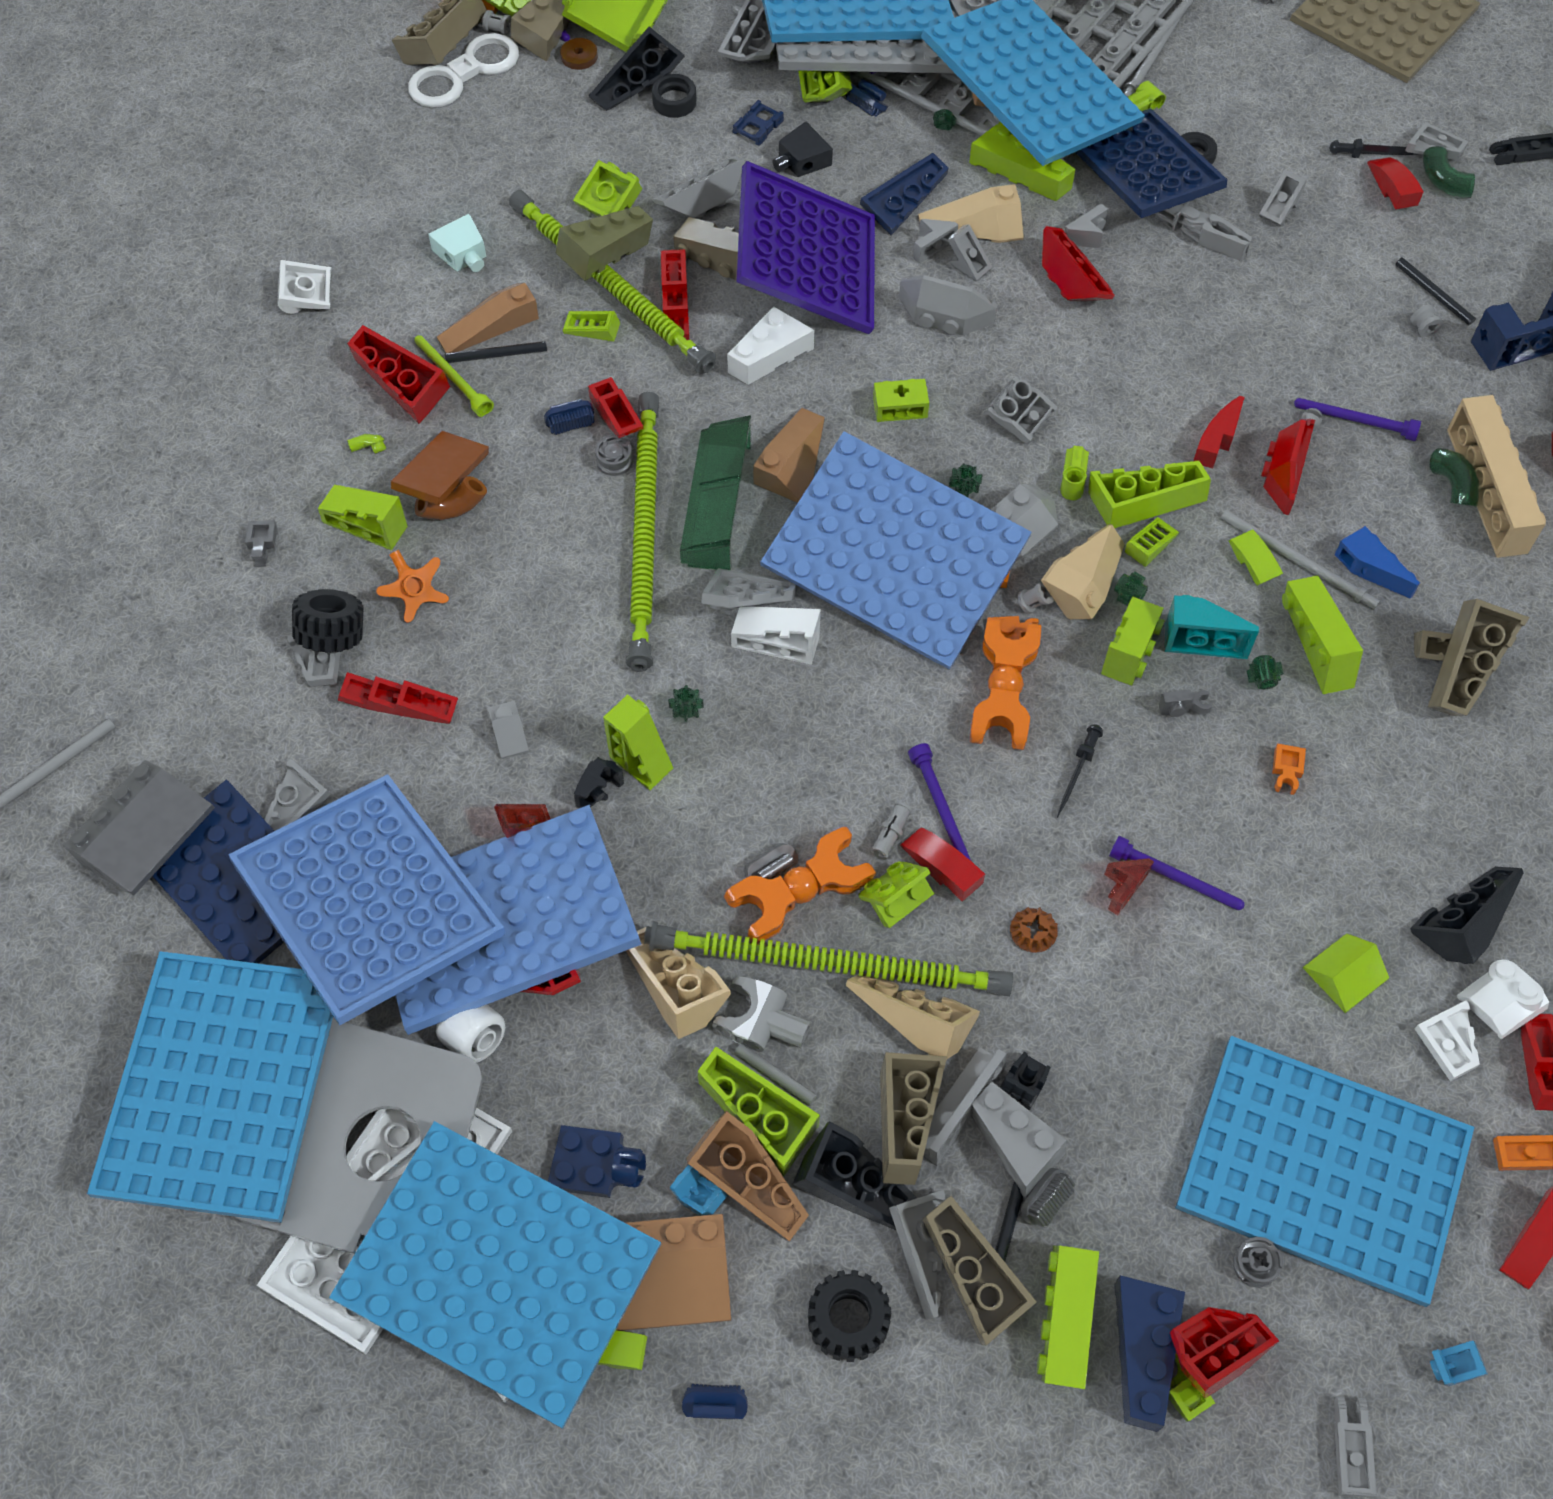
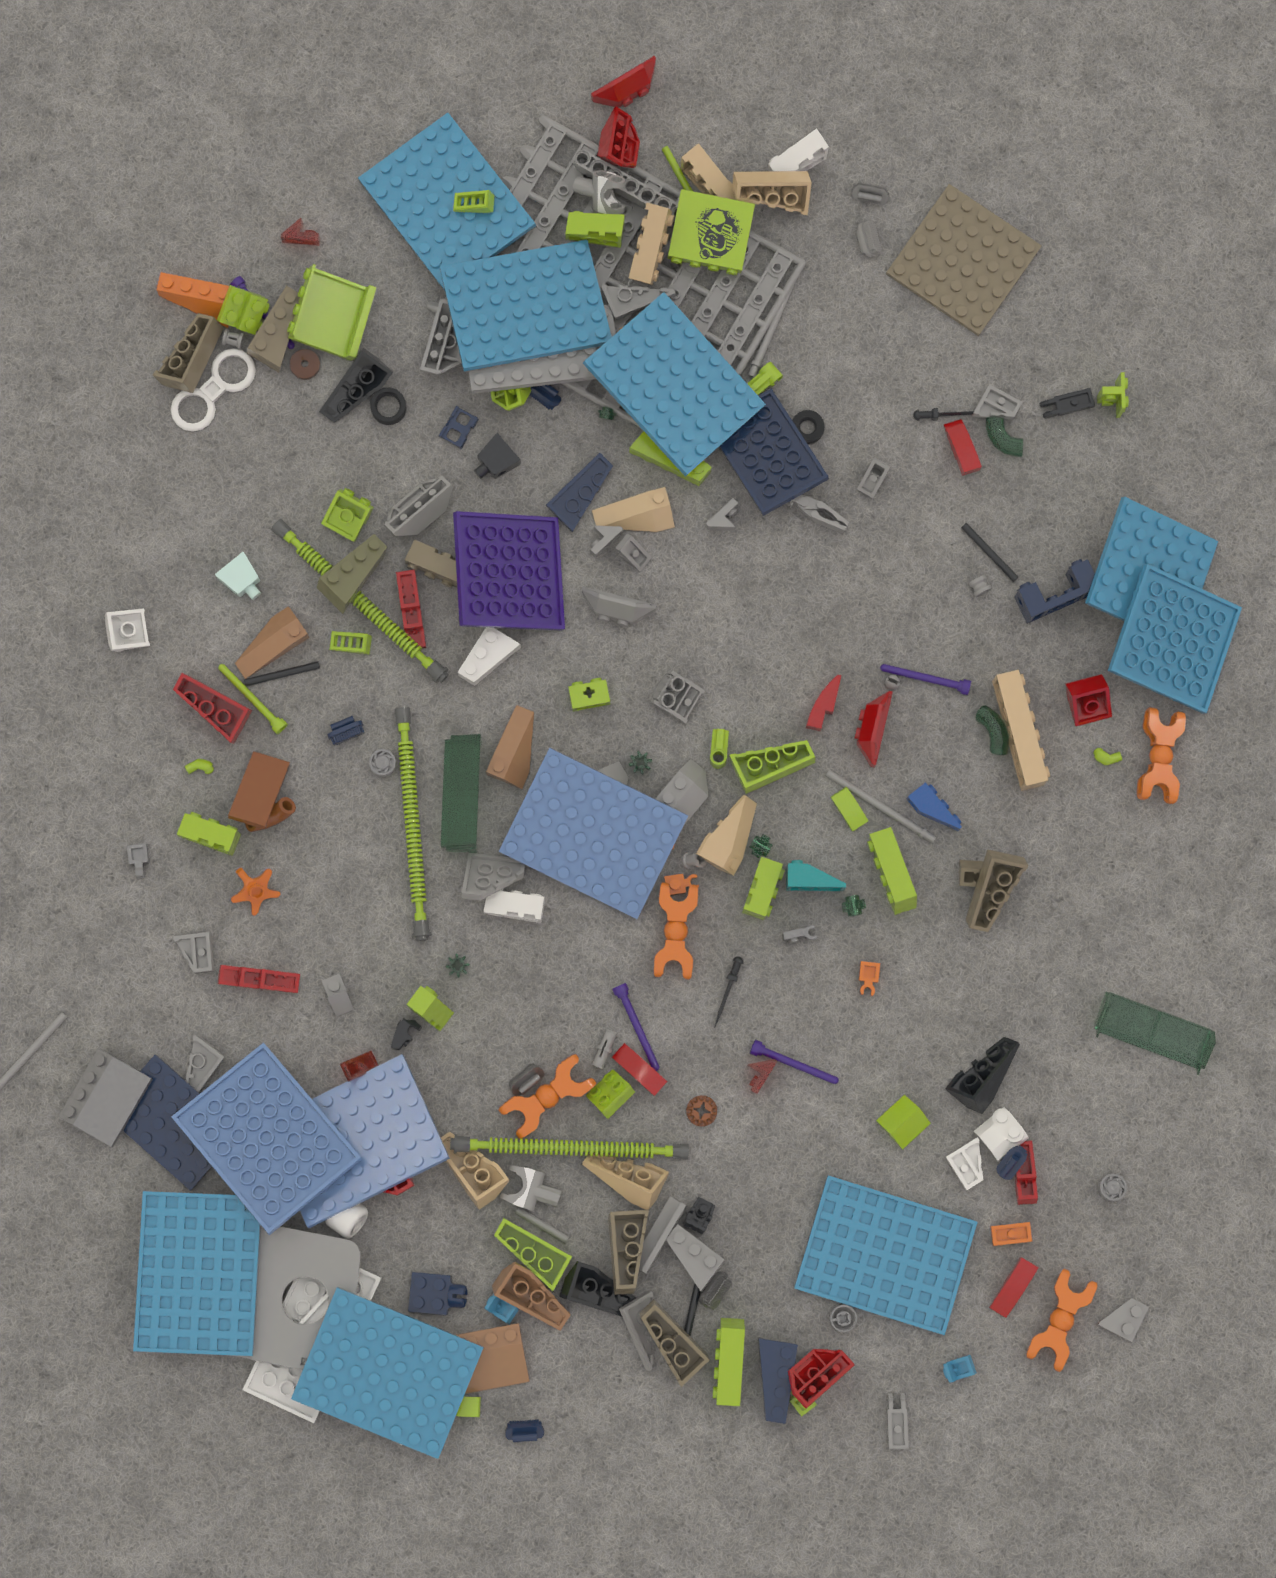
camera: 10 degrees left, 20 degrees up
(327, 620) = (196, 940): black tyre -> none
(614, 407) = (379, 724): red slope -> none
(849, 1344) = (583, 1382): black tyre -> none
(1071, 268) = (715, 563): red wedge -> none
(1139, 552) = (763, 810): lime slope -> none
(1525, 1039) = (1012, 1162): none -> dark blue piece

